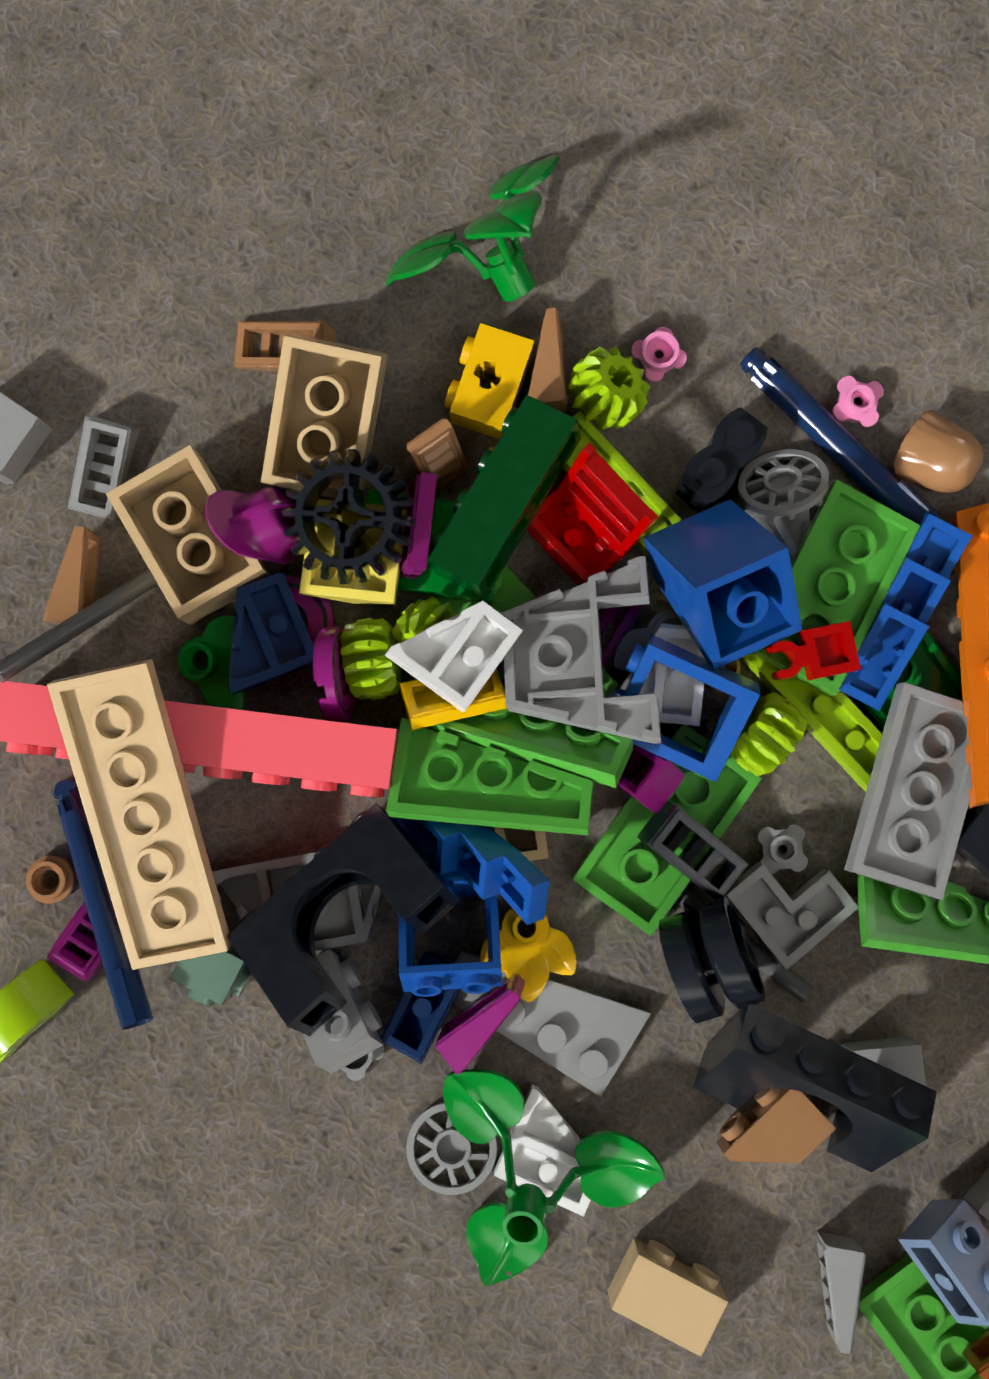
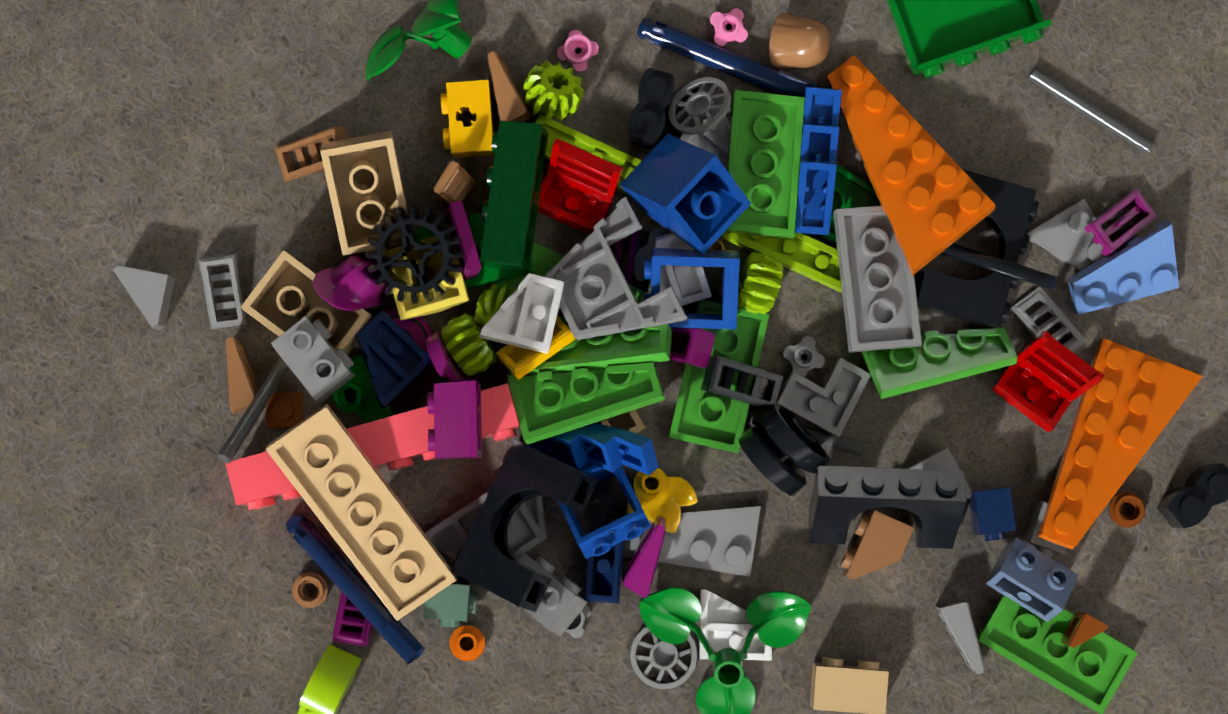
camera: 30 degrees left, 0 degrees up
(114, 643) = (284, 410): none -> dark orange plate
(166, 594) = (313, 358): none -> light grey brick
(225, 1018) = (467, 631): none -> orange plate
(308, 752) = (456, 420): none -> magenta slope
(821, 652) = (770, 212): red plate -> none
(946, 1154) = (992, 513): none -> dark blue brick

